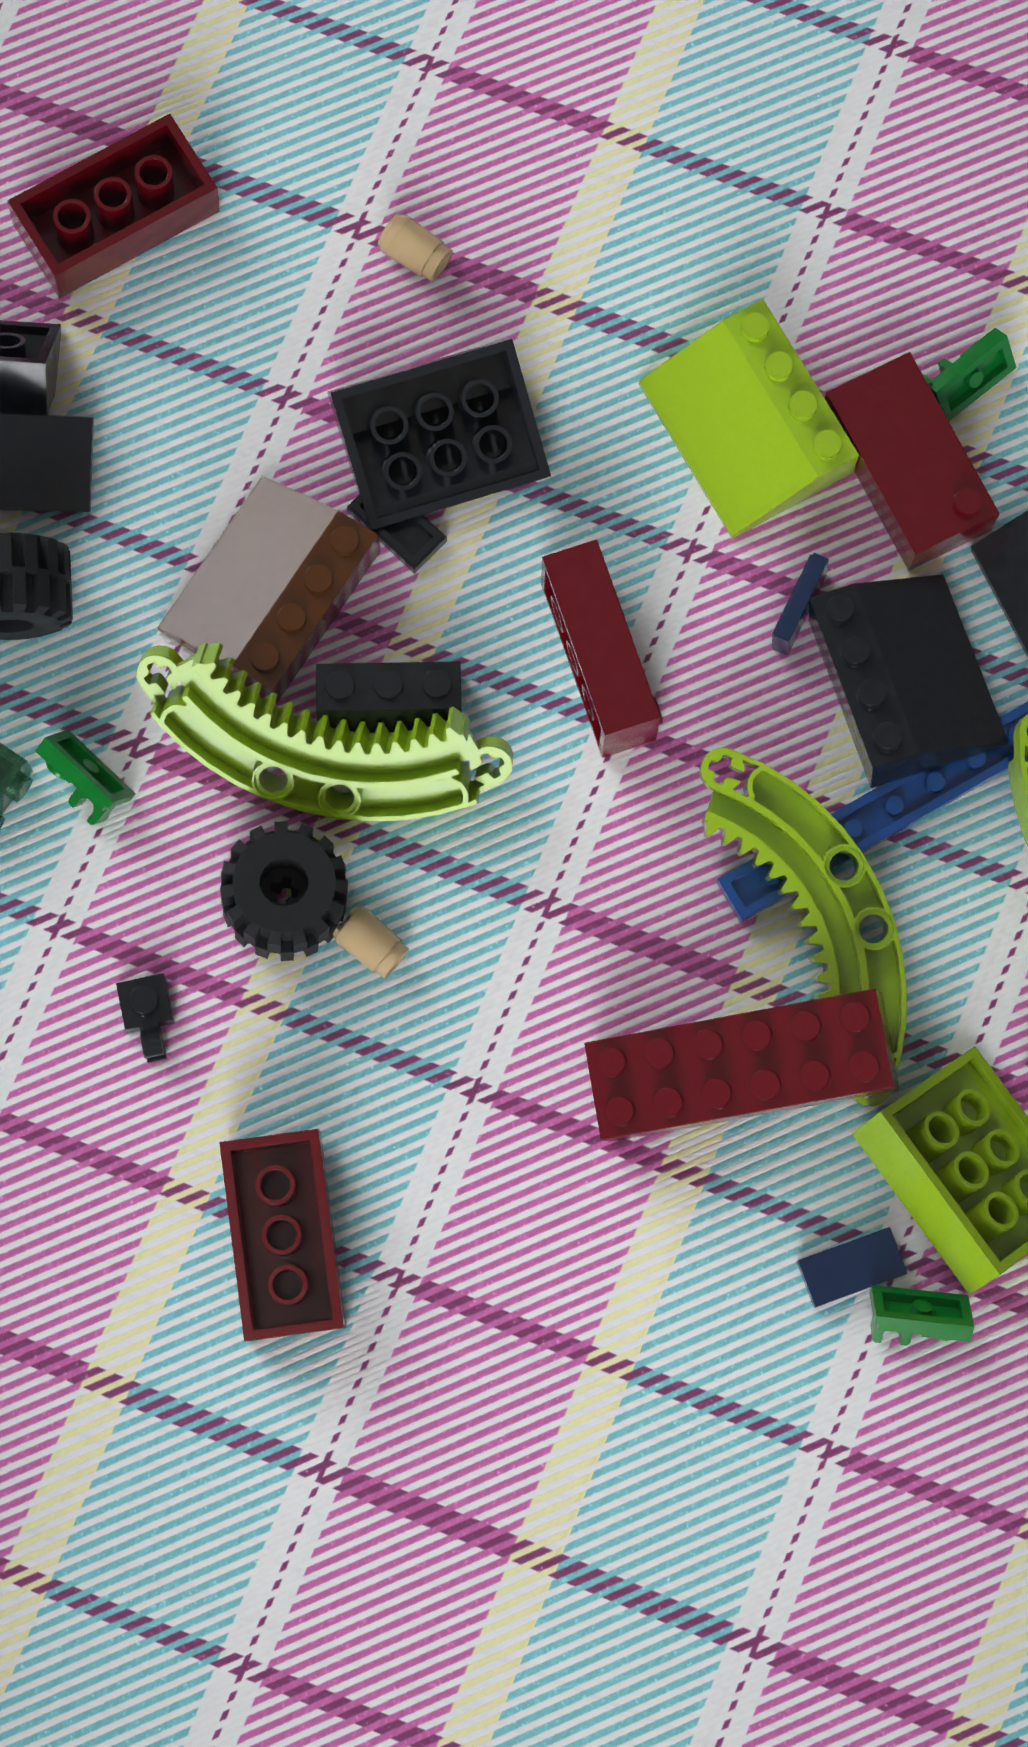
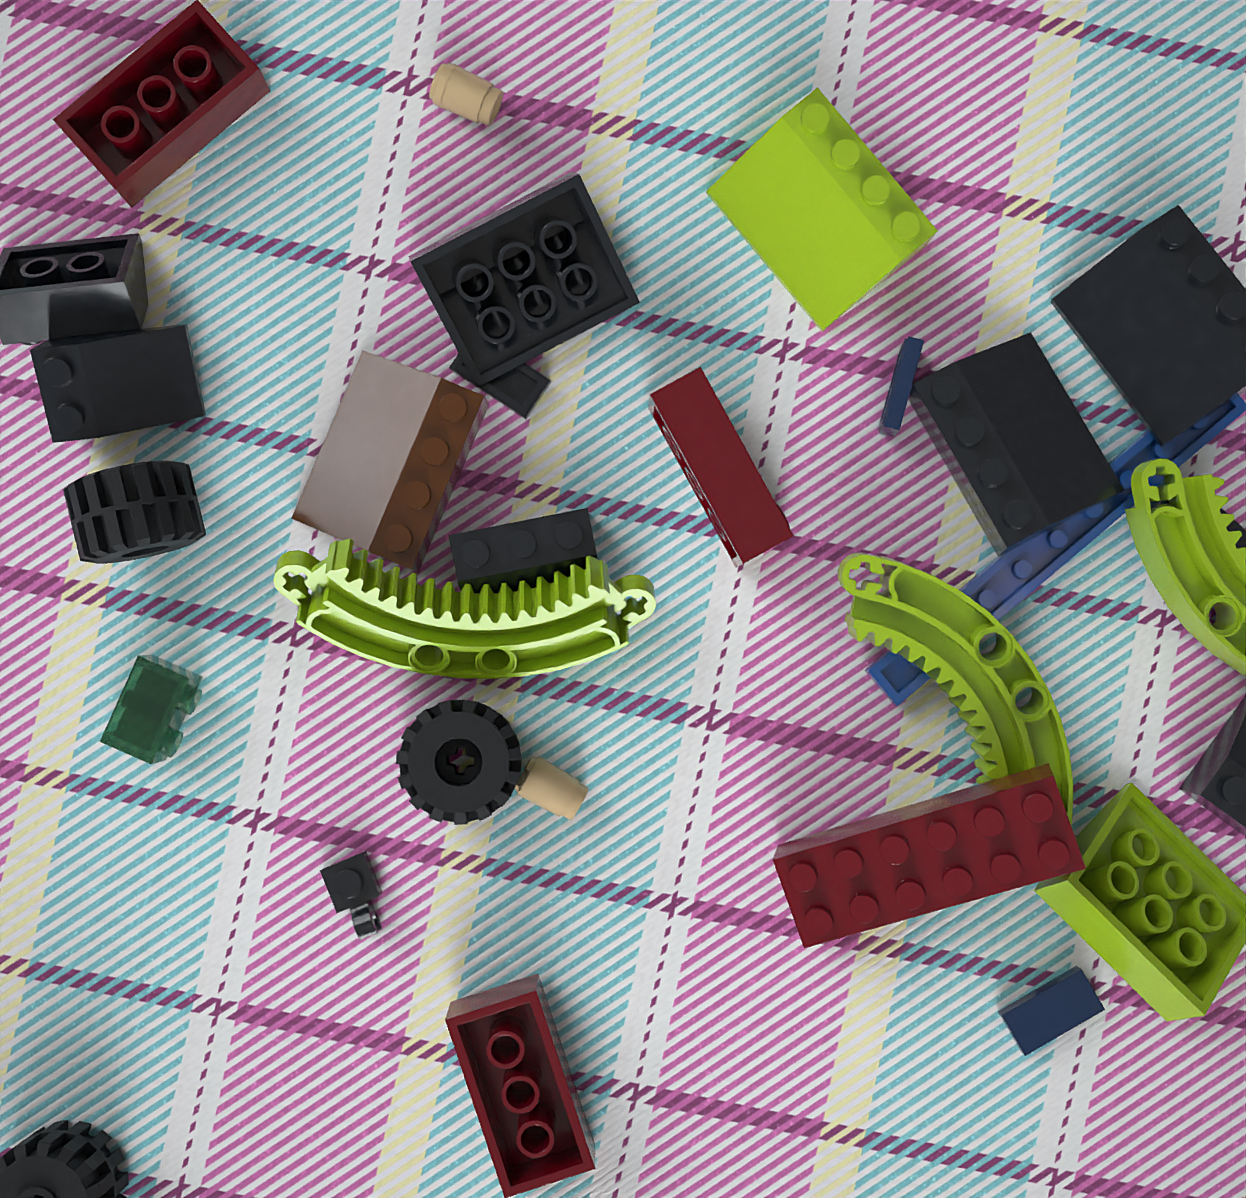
camera: 10 degrees left, 10 degrees up
(93, 780) = (250, 675): green plate -> none
(912, 462) = (987, 225): dark red brick -> none
(920, 1313) = (1125, 1047): green plate -> none
(972, 373) = (1027, 130): green plate -> none

